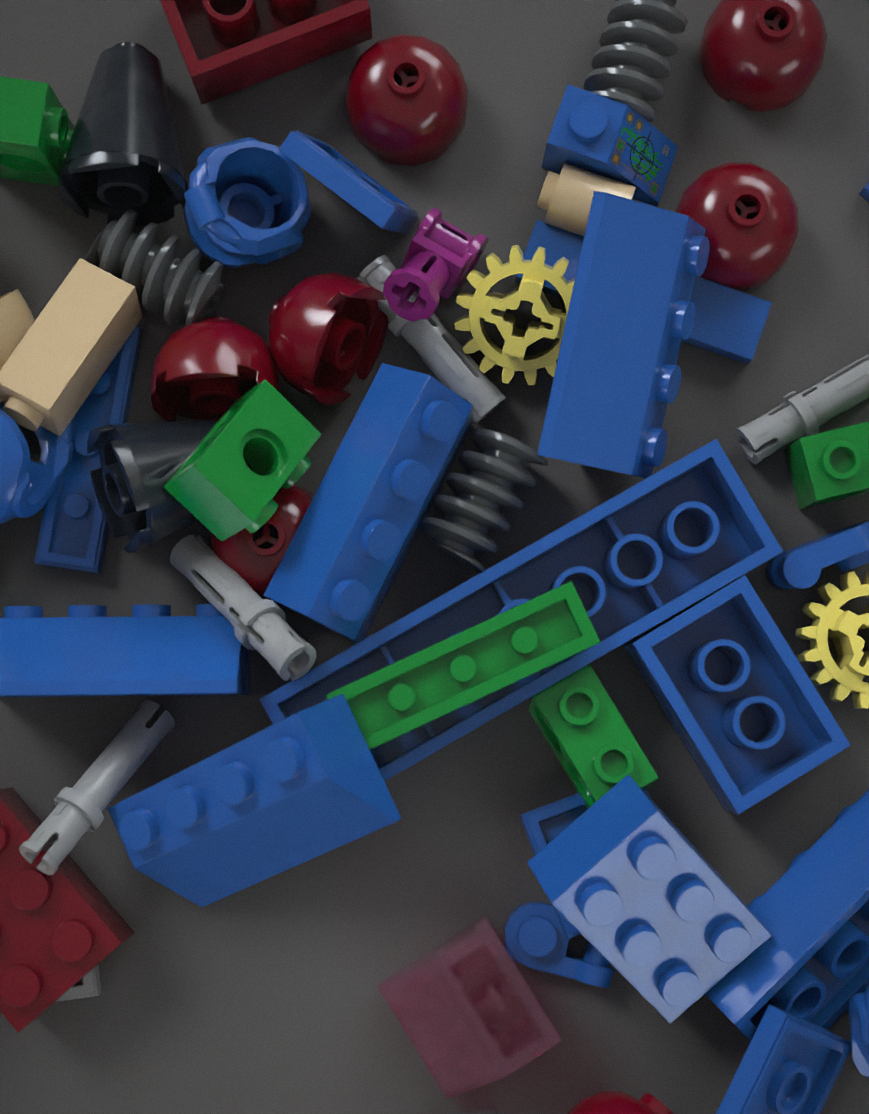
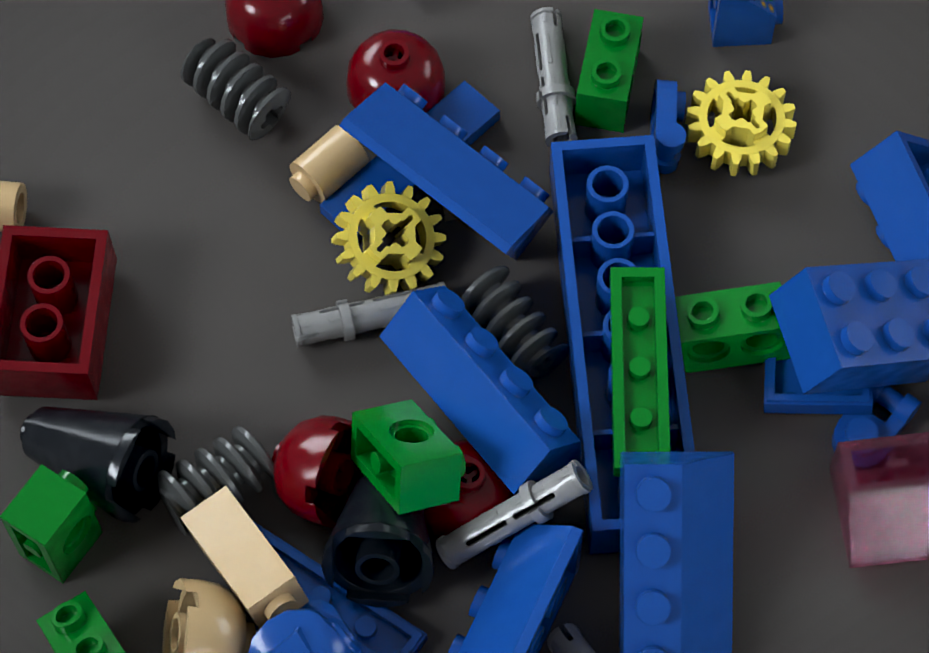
camera: 60 degrees left, 20 degrees down
(246, 204) = (203, 384): blue helmet -> none
(326, 334) = (326, 377): dark red cylinder -> none
(349, 182) = (229, 305): blue tile -> none
(406, 99) = (178, 253): dark red cylinder -> none
(435, 262) = (316, 279): magenta connector -> none
(609, 142) = (285, 132): blue slope -> none
(737, 696) = (743, 218): blue brick -> none

